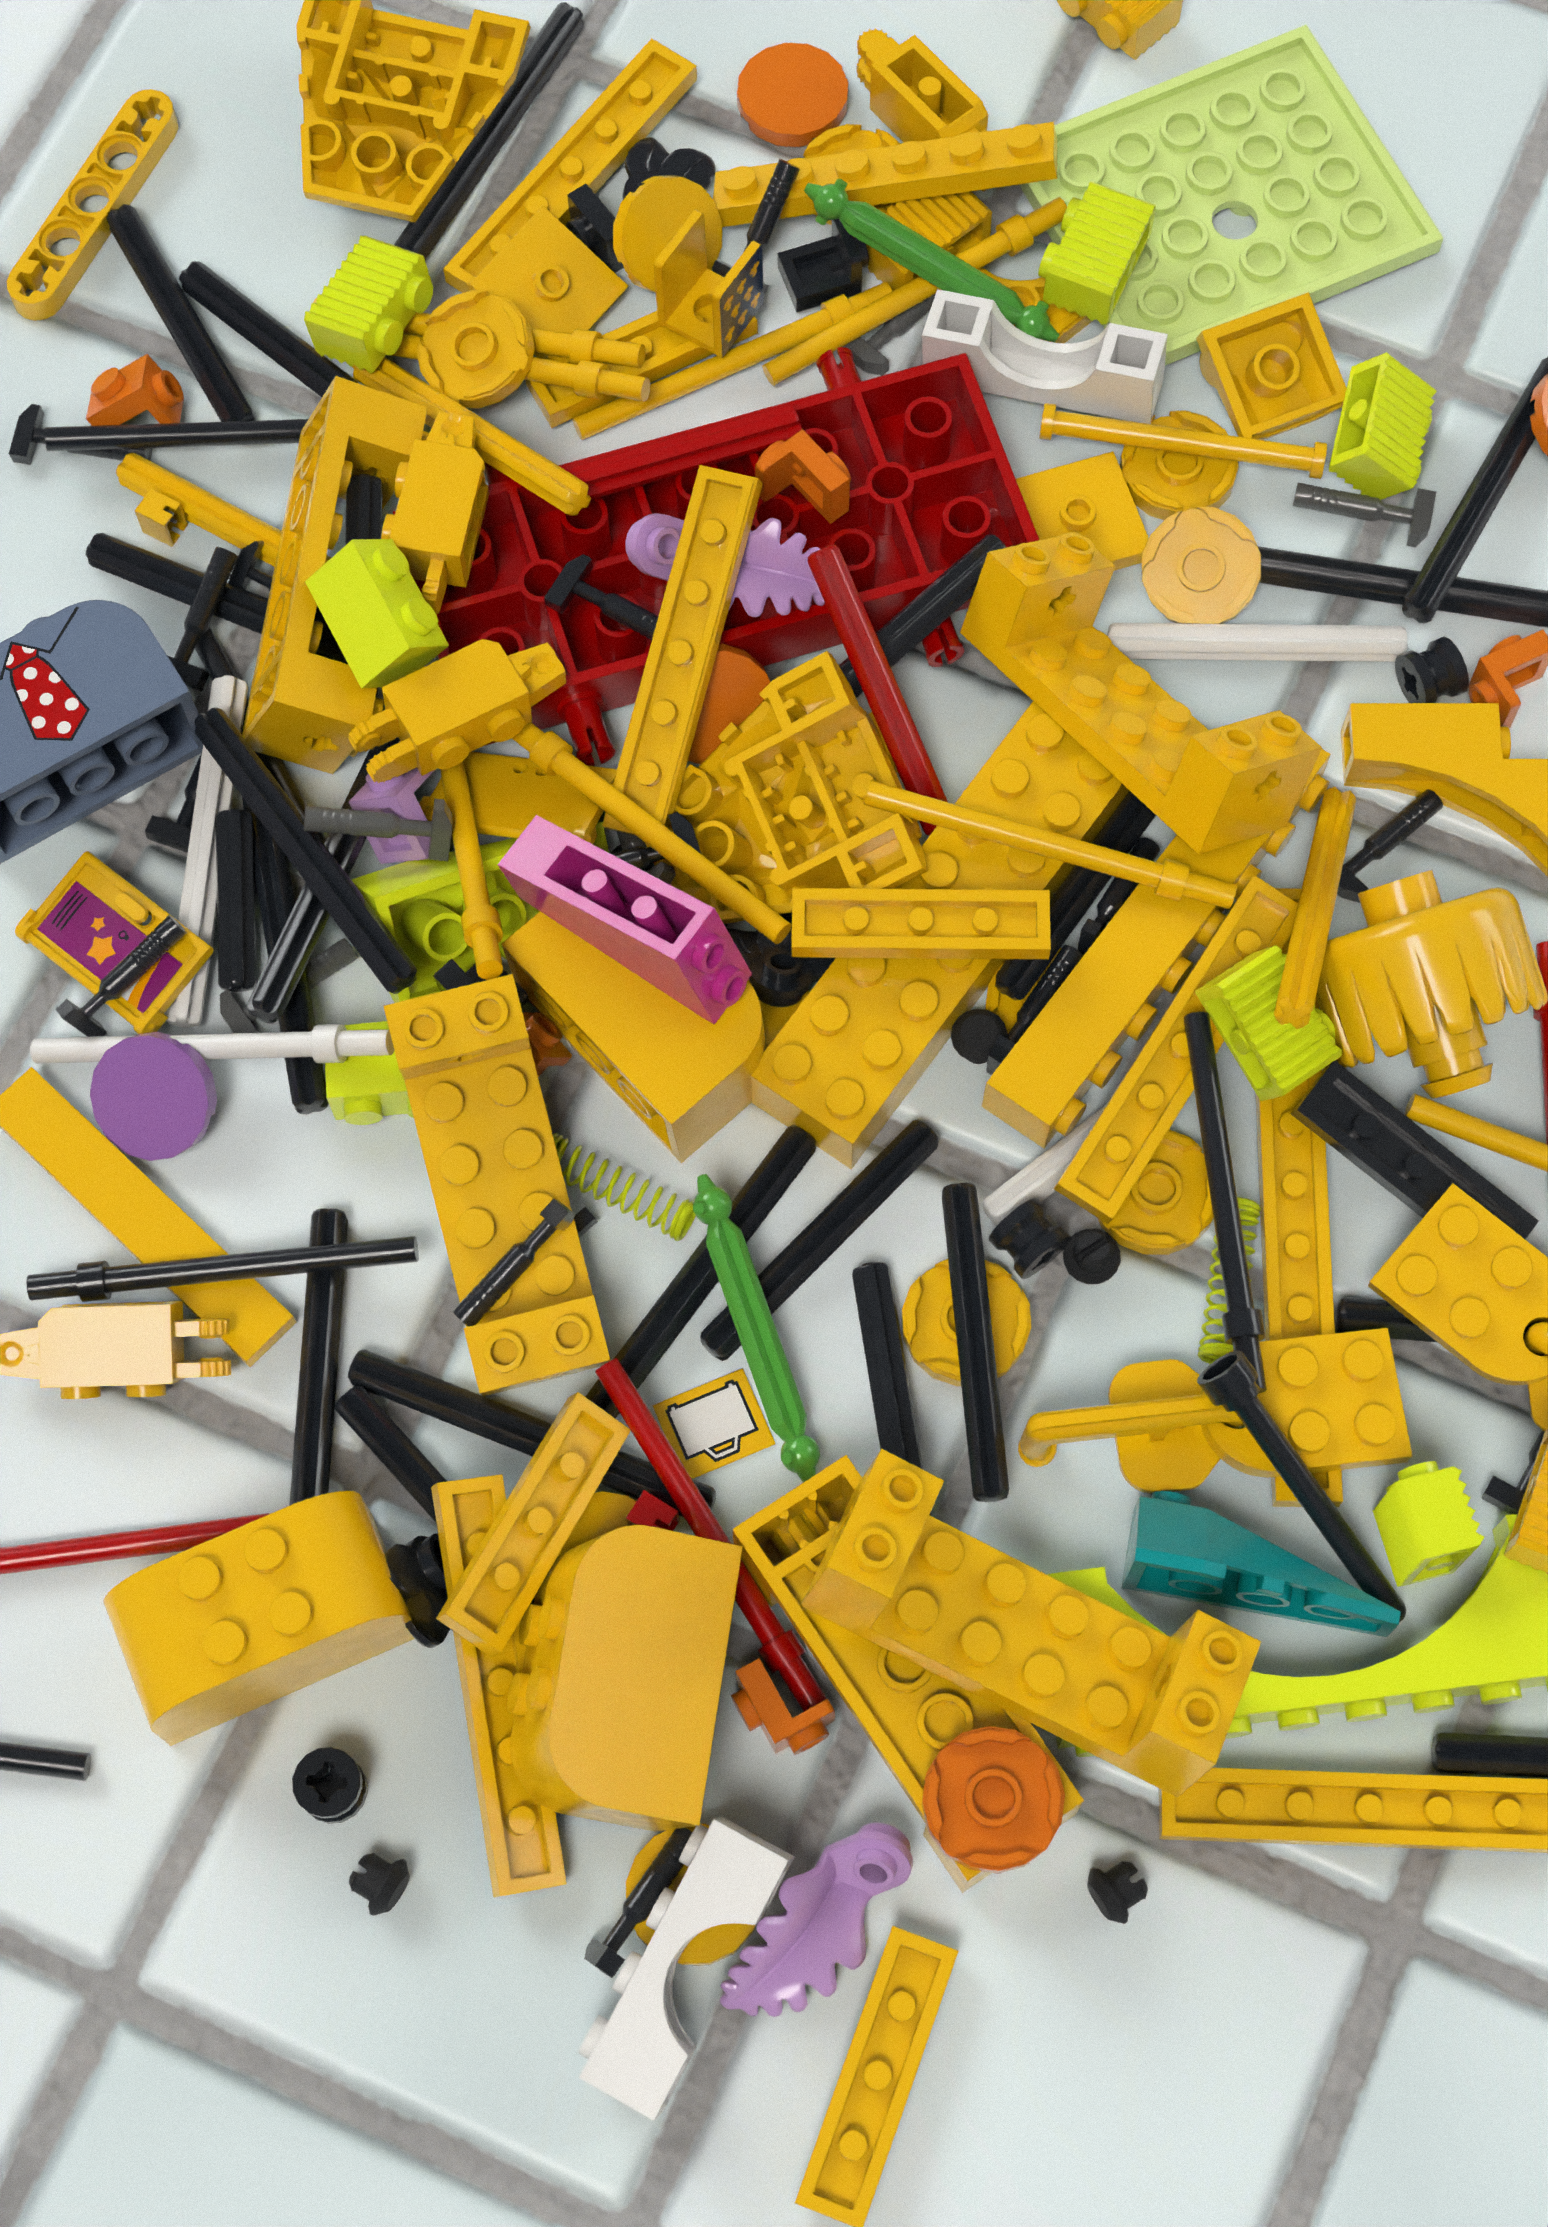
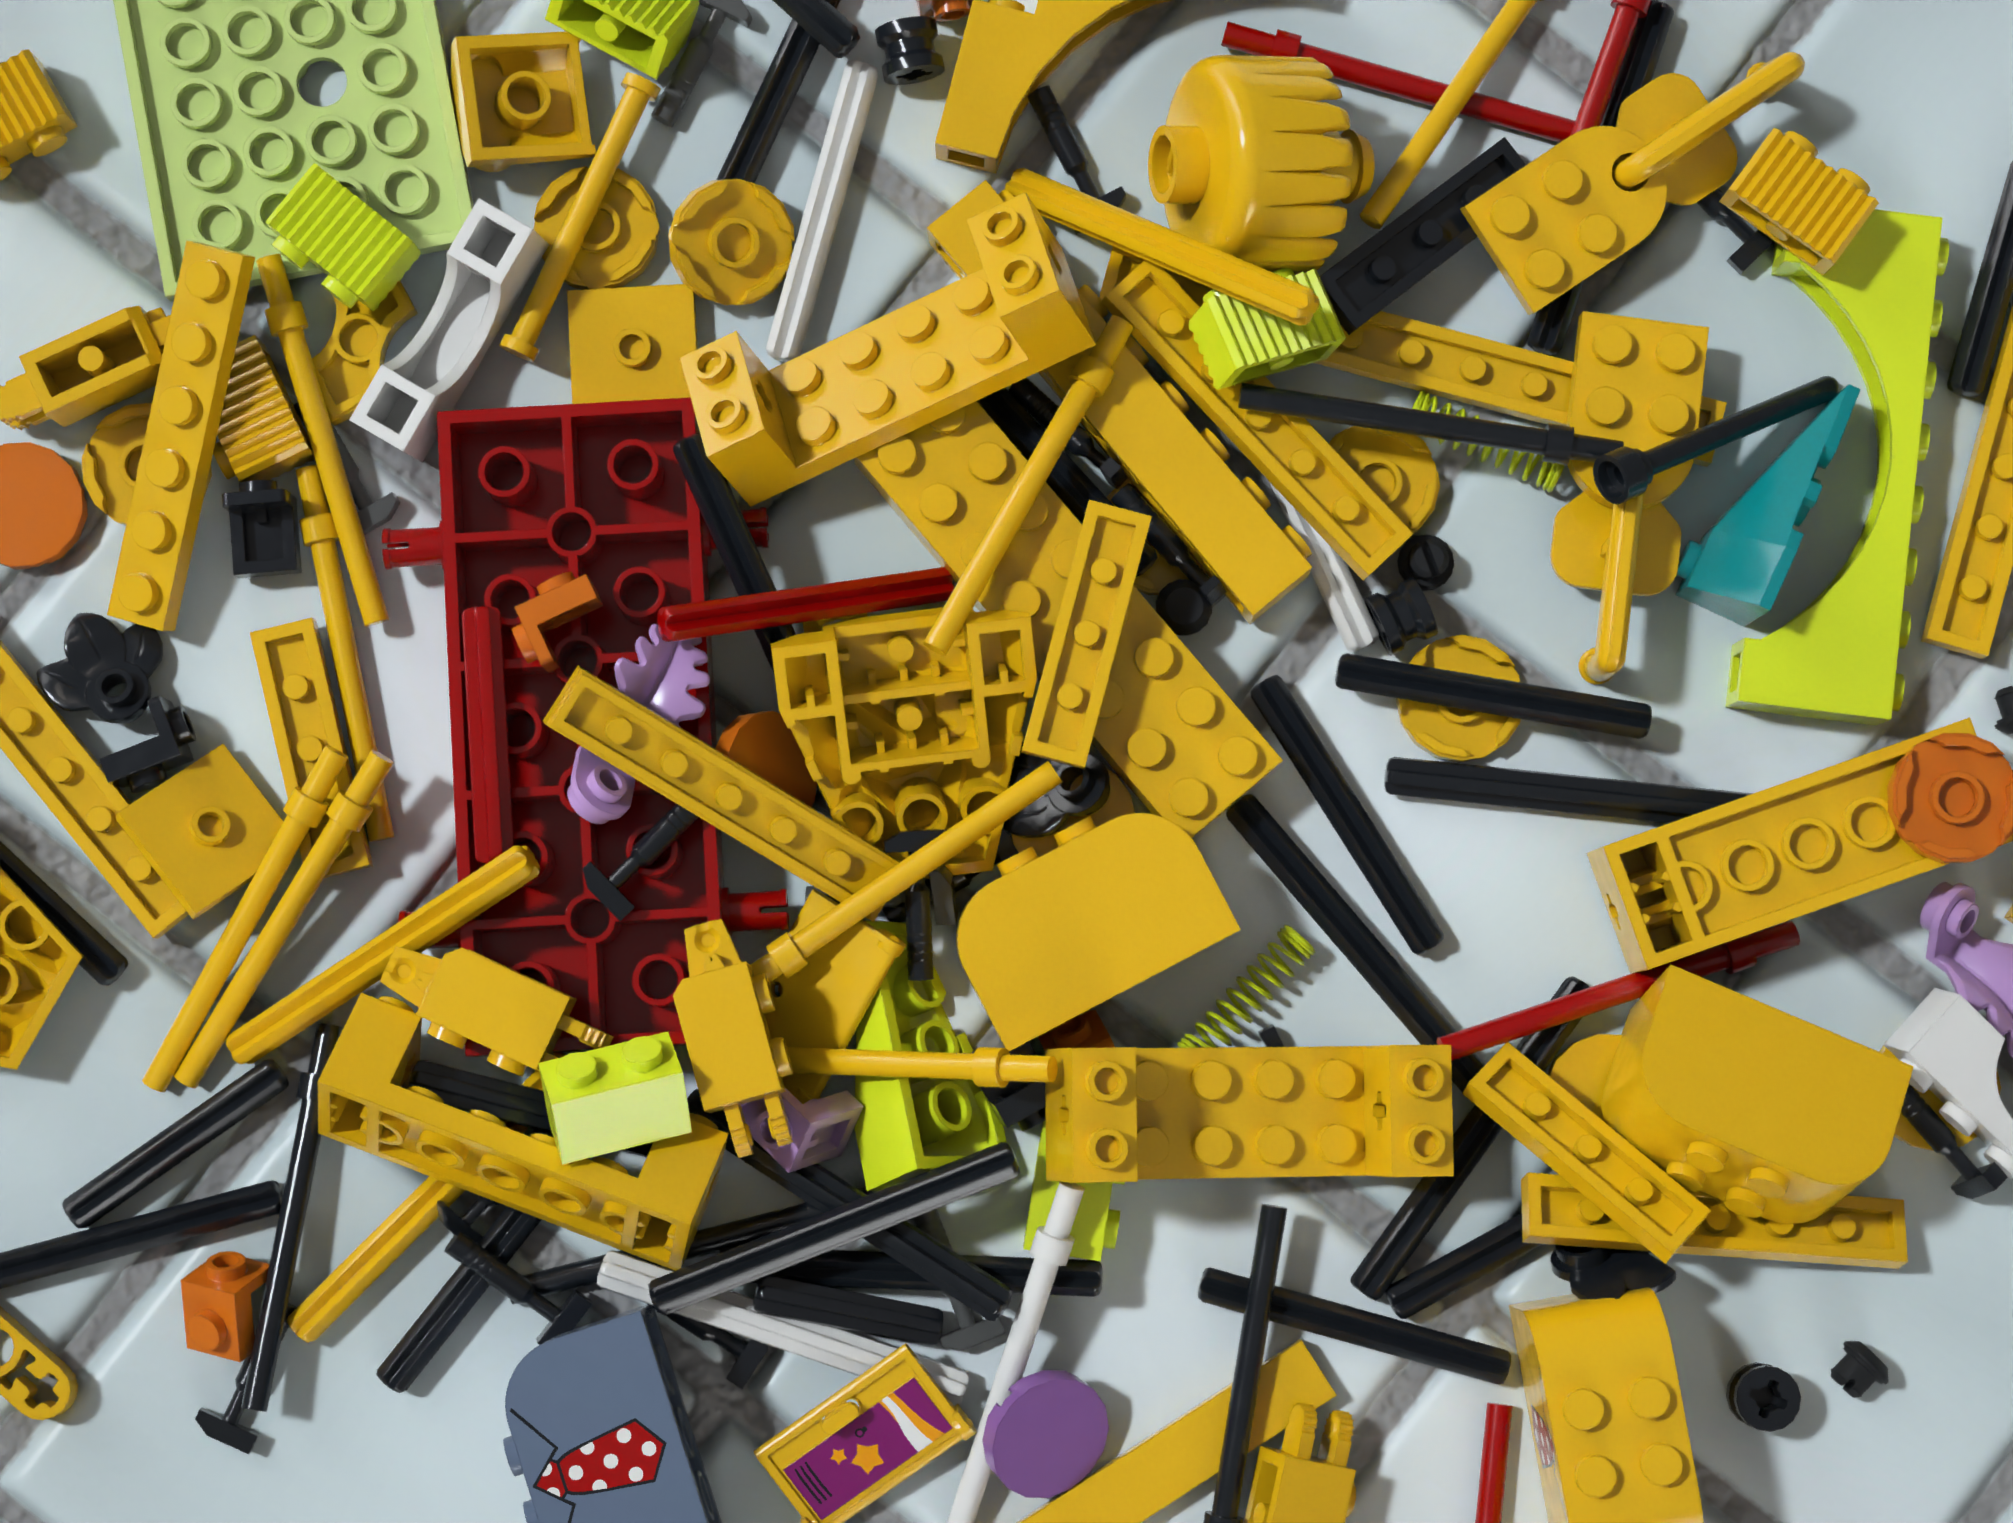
camera: 80 degrees left, 15 degrees up
(123, 976) = (911, 1437): black piece -> none
(158, 516) = (371, 1307): yellow piece -> none
(369, 304) = (192, 1025): neon yellow brick -> none
(385, 825) = (833, 1144): dark grey piece -> none
(476, 348) = (278, 925): yellow tile -> none
(512, 1265) = (1328, 1114): black piece -> none
(629, 917) = (1032, 923): slope -> none
(651, 219) = (185, 686): yellow tile -> none
(653, 1512) = (1590, 1044): red piece -> none
(685, 281) = (253, 663): yellow piece -> none
(714, 1424) = (1499, 962): sticker -> none
(756, 1329) = (1432, 899): bright green wheel -> none
(763, 1707) = (1786, 983): orange bracket -> none
(768, 211) = (209, 589): black piece -> none
(925, 257) = (307, 418): bright green wheel -> none
(1026, 1638) = (1818, 724): yellow plate -> none
(1426, 1523) = (1777, 335): neon yellow brick -> none

